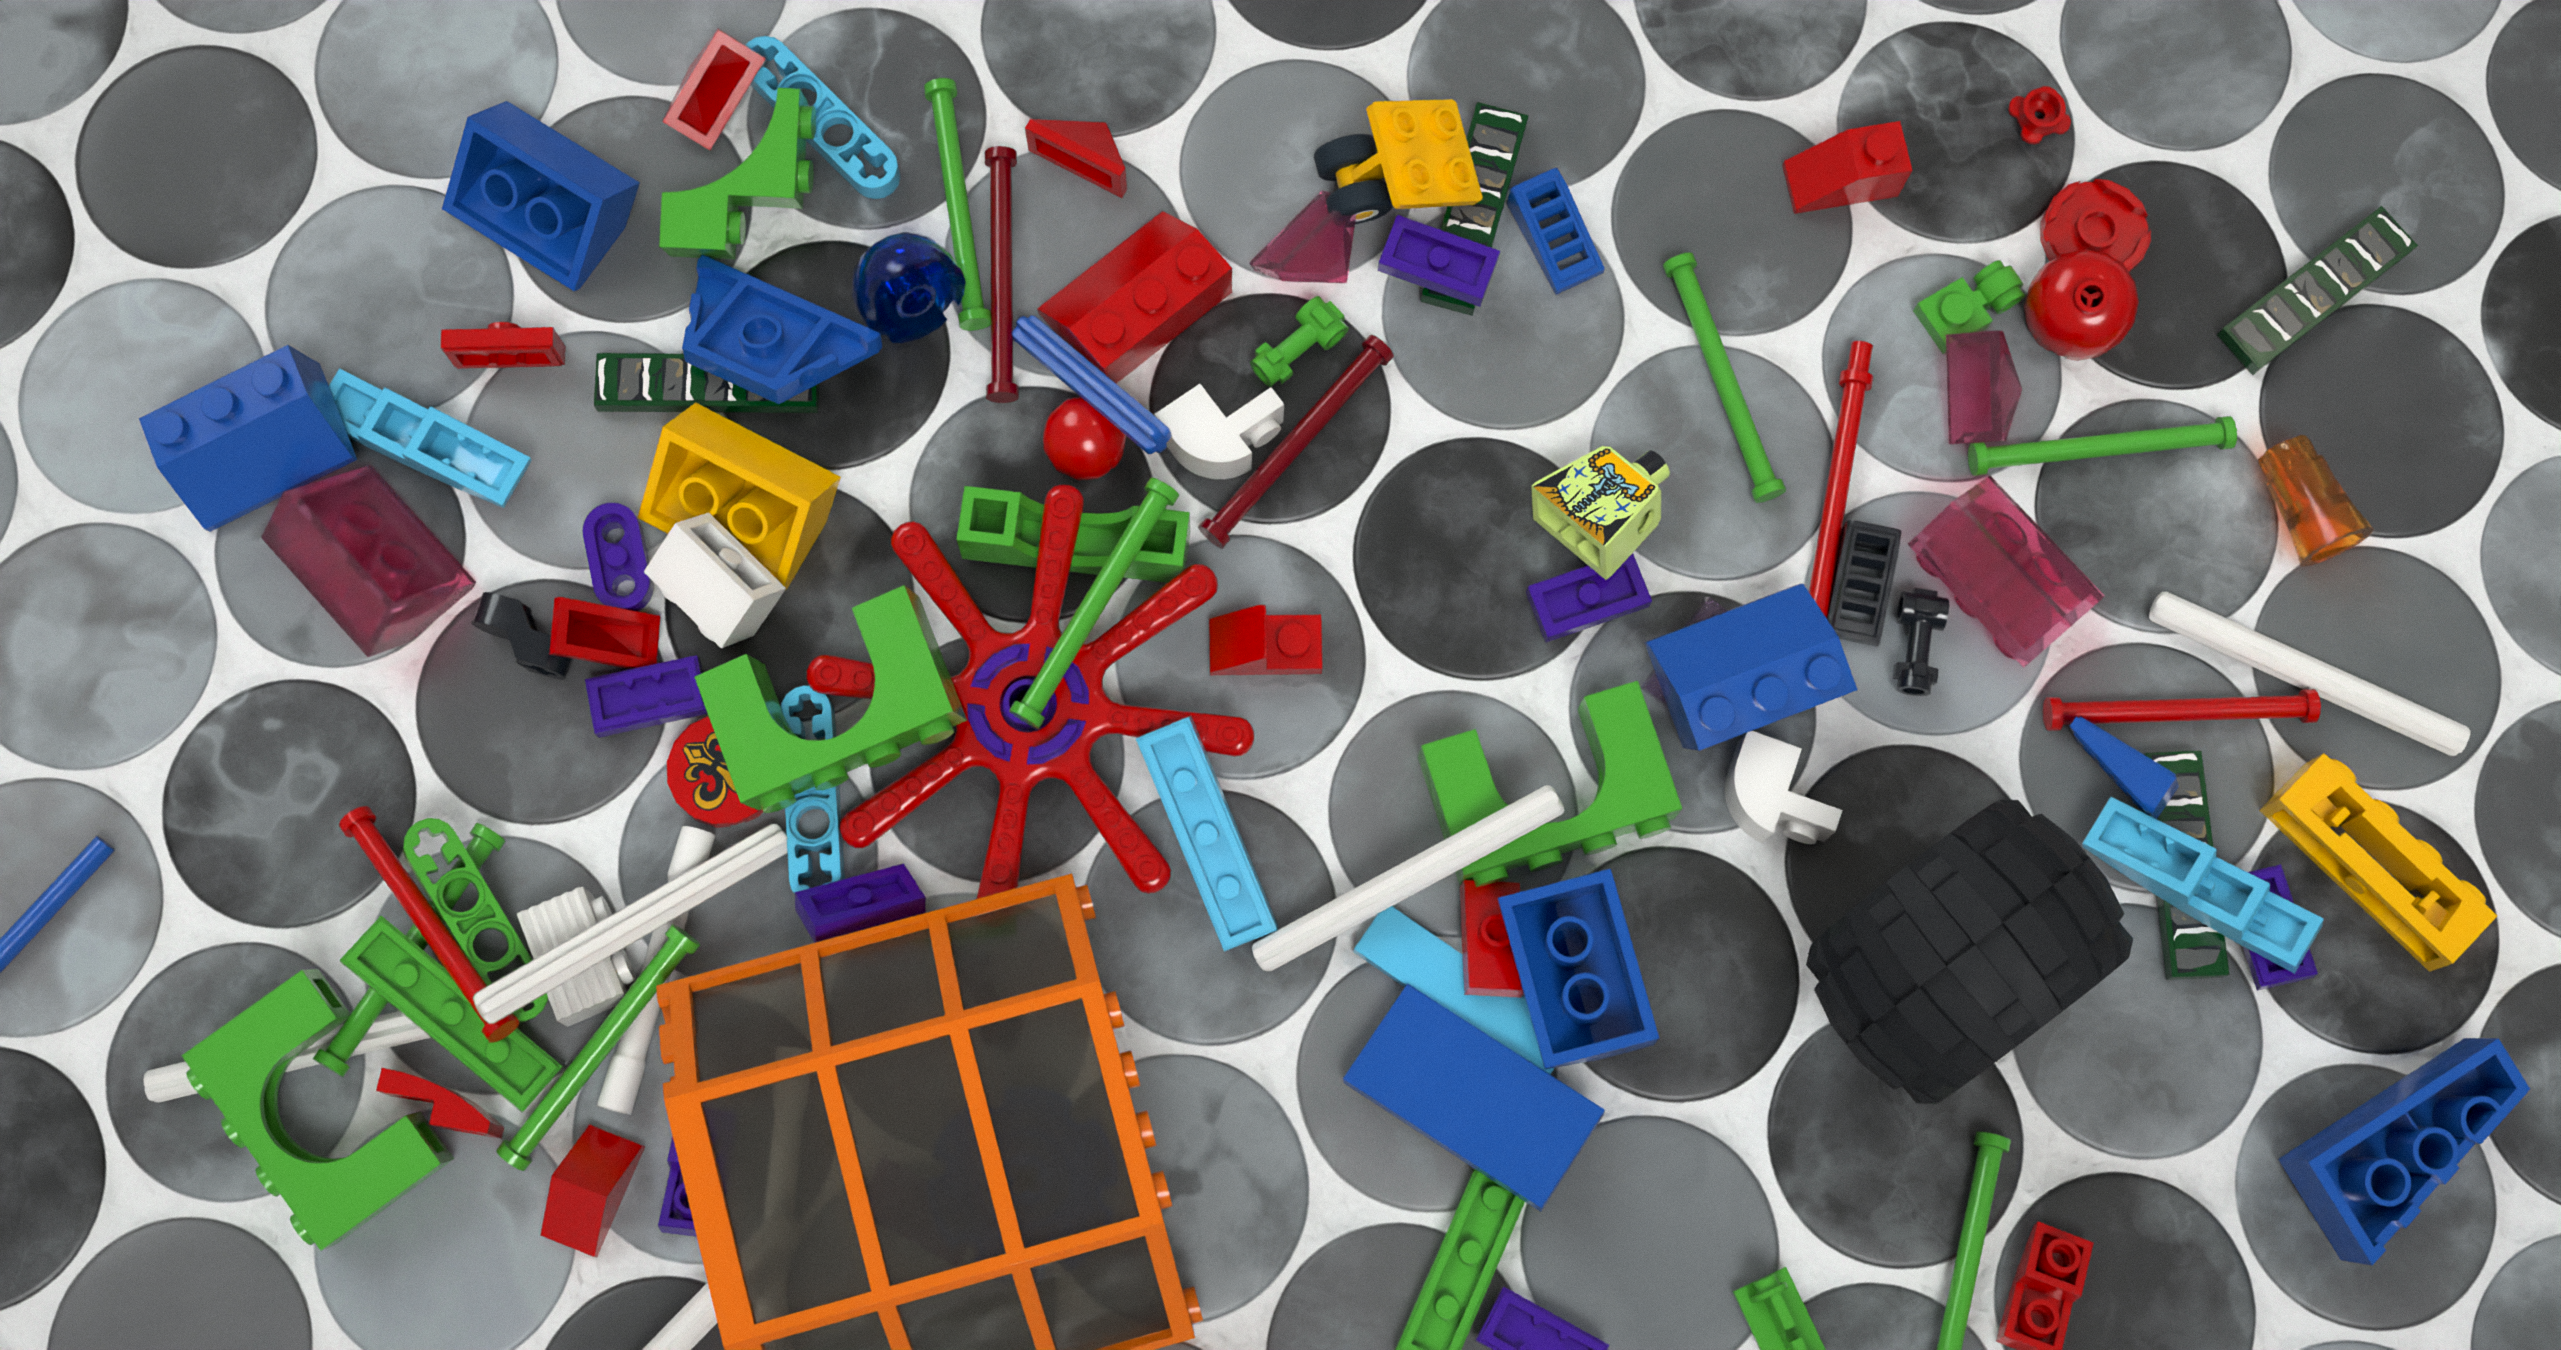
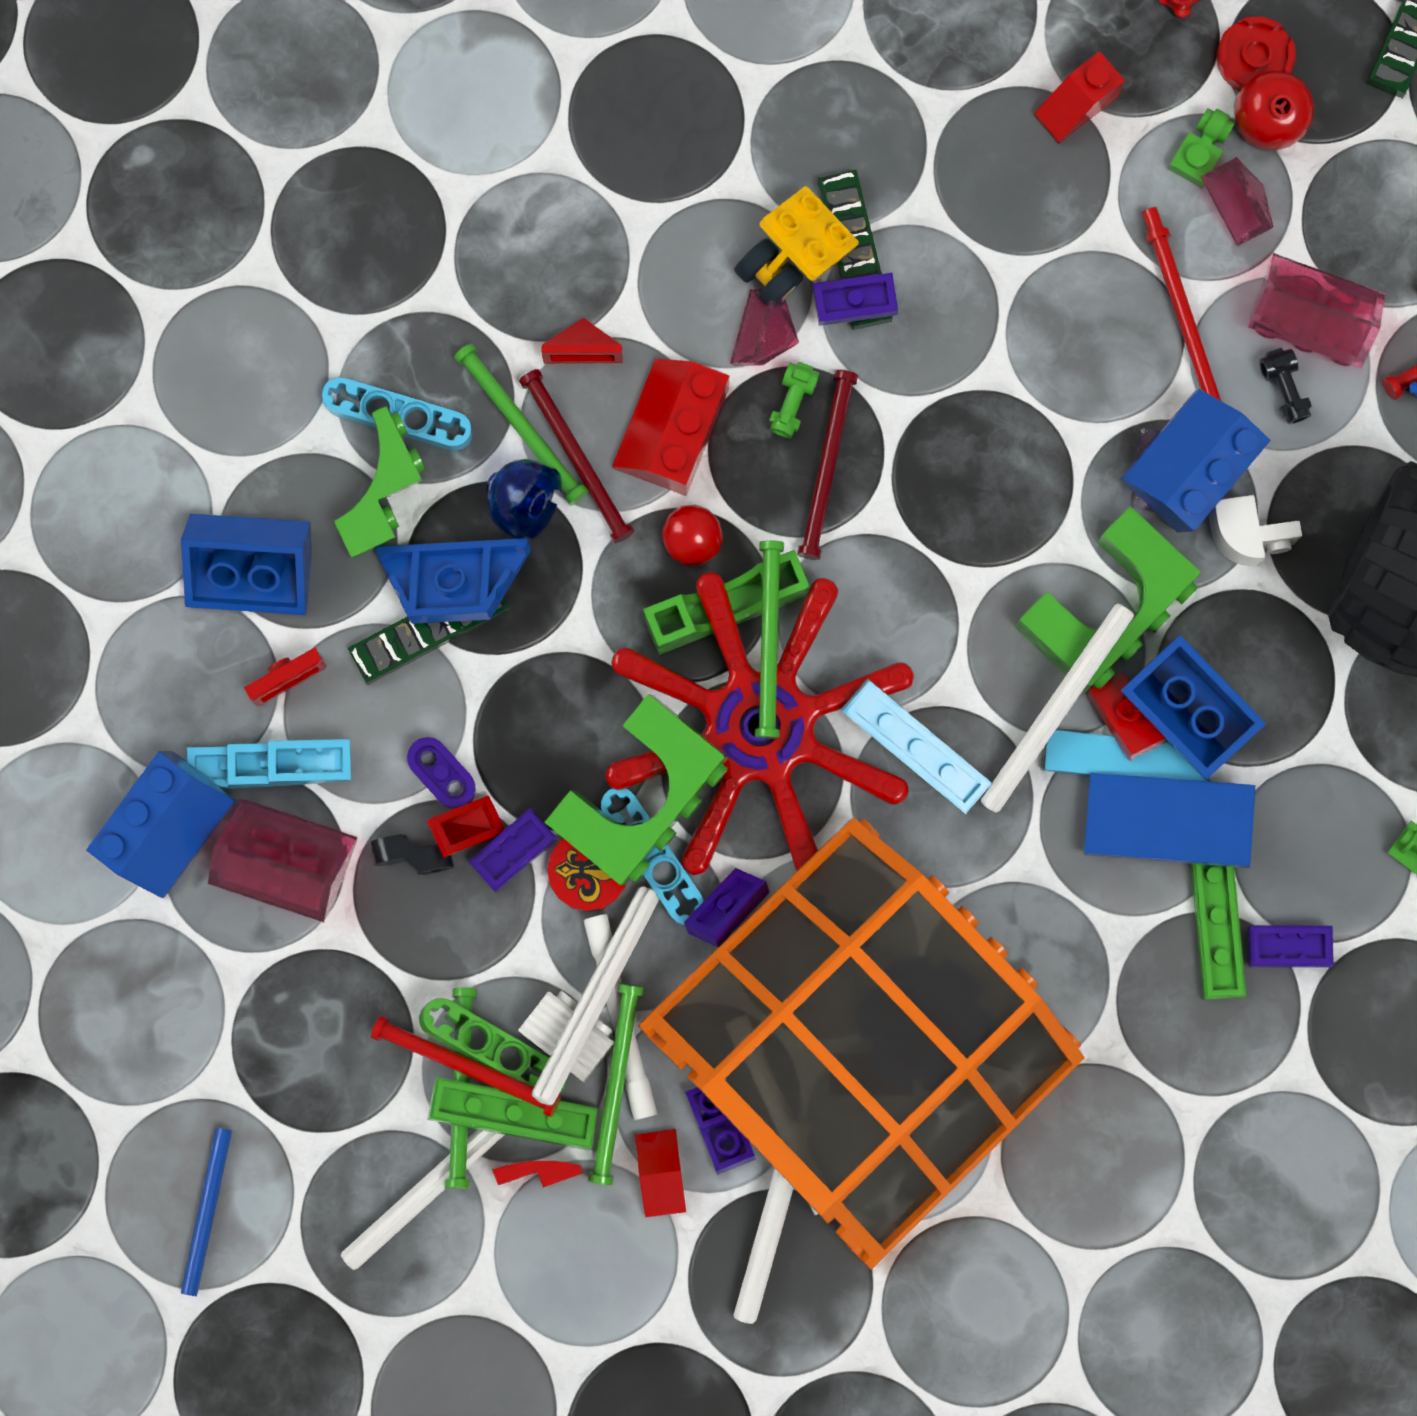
camera: 25 degrees left, 5 degrees up
(242, 1074) = (504, 1262): bright green arch -> none
(713, 88) = (317, 432): slope -> none
(714, 580) = (514, 754): white brick -> none
(746, 482) = (494, 692): yellow slope -> none
(1091, 384) = (681, 499): axle -> none
(1218, 444) = (775, 495): white brick -> none
(1265, 644) = (881, 606): red slope -> none
(1536, 189) = (923, 227): blue slope -> none
(1586, 599) = (1067, 467): dark purple plate -> none
(1602, 505) = (1045, 404): yellowish green torso -> none
(1682, 271) = (1073, 277): bright green bar -> none
(1870, 537) = (1239, 347): black slope -> none
(2221, 433) = (1402, 149): bright green bar -> none

